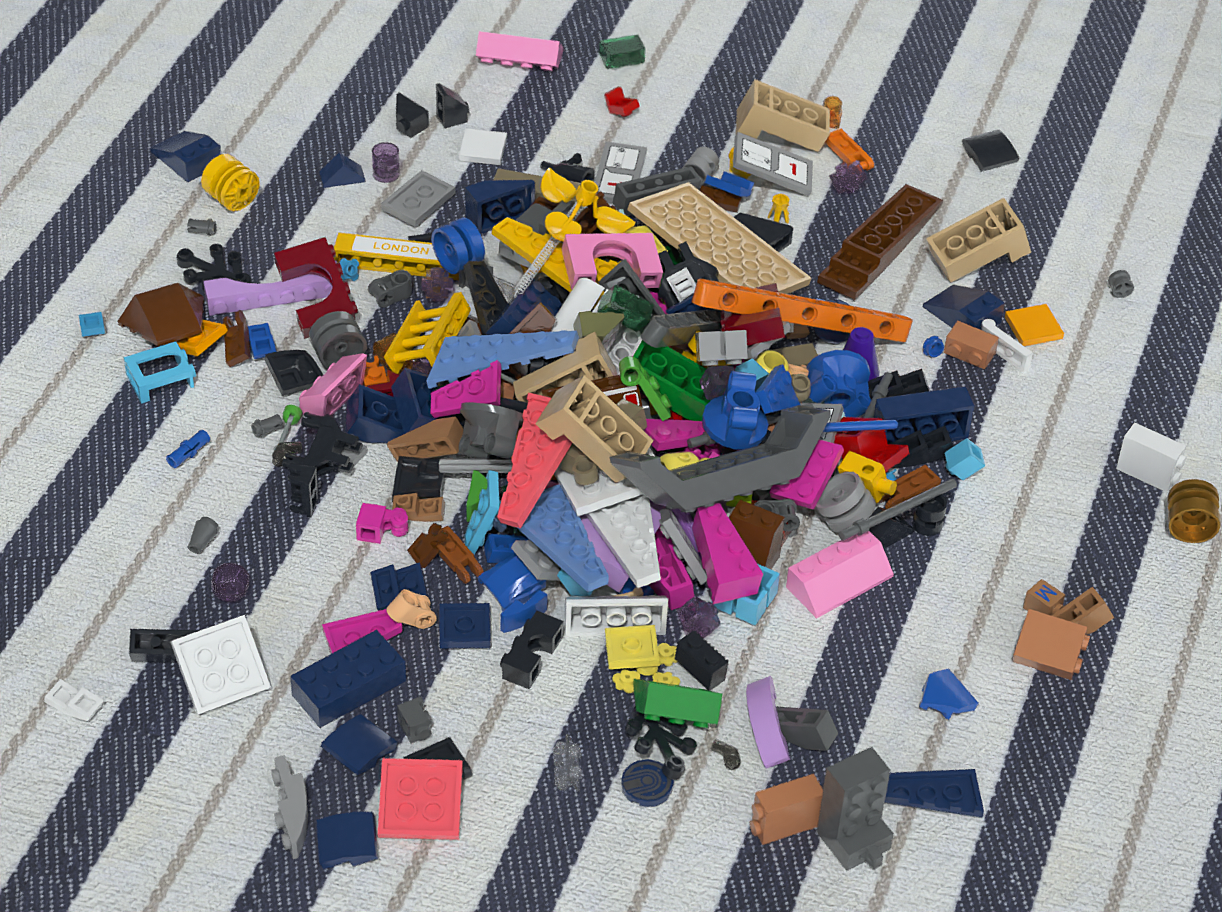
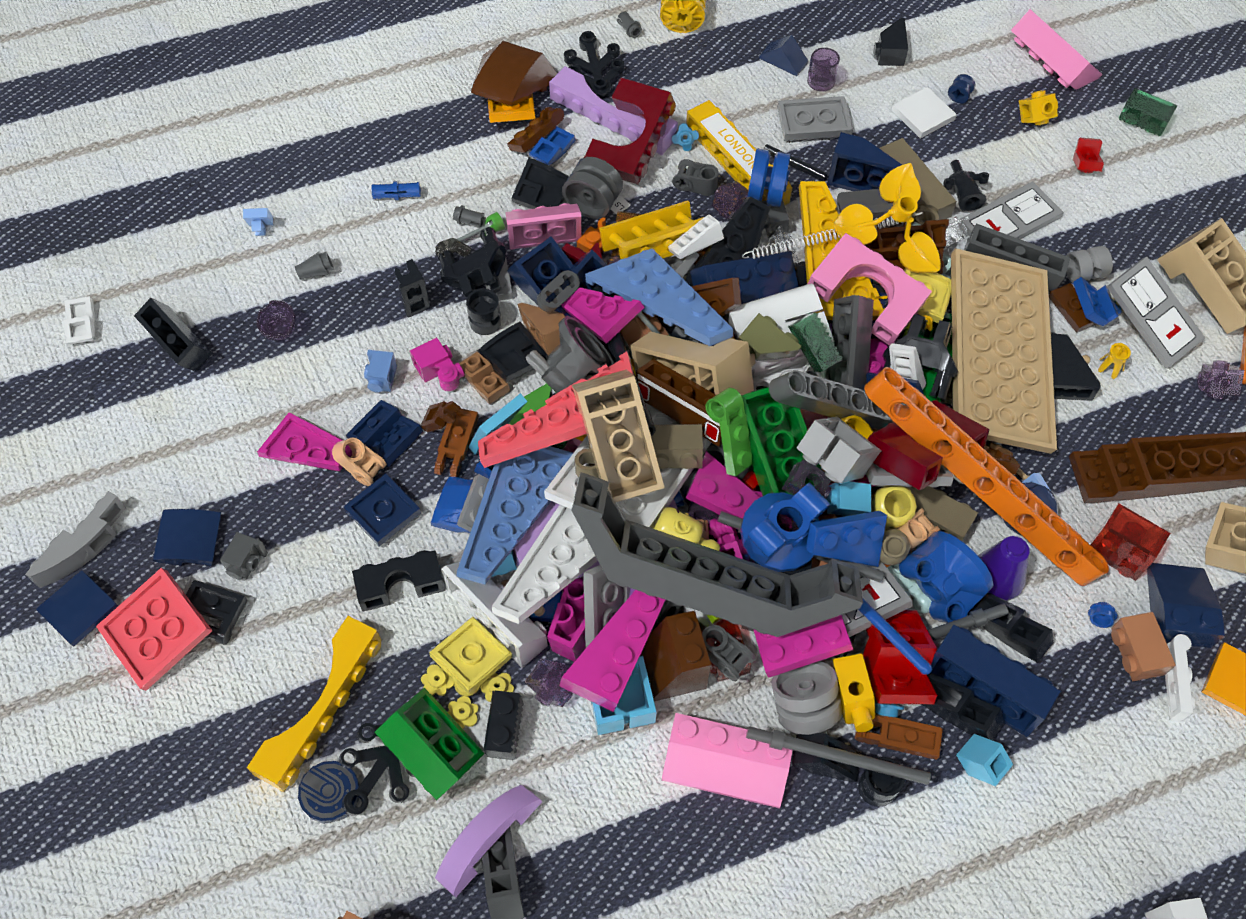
camera: 50 degrees right, 15 degrees up
(91, 324) = (460, 43): dark azure plate -> none
(115, 539) = (258, 219): none -> light blue tile
(143, 384) = (431, 114): medium azure panel -> none
(220, 664) = (175, 380): white plate -> none
(346, 554) = (380, 371): none -> medium blue brick
(348, 678) = (246, 474): dark blue brick -> none
(368, 468) = (483, 311): none -> black wheel
(420, 405) = (554, 286): none -> dark grey beam
(450, 107) = (934, 58): black slope -> none
(467, 307) = (698, 237): none -> white slope
(490, 114) = (961, 88): none -> dark blue wheel
(517, 613) = (426, 539): blue slope -> none
(555, 93) = (1038, 108): none -> yellow brick
(558, 707) = (282, 756): none -> yellow arch
(570, 773) = (287, 716): clear hinge -> none
(730, 754) = (421, 837): clear smoke arm -> none
(905, 294) = (1129, 541): none -> clear red brick

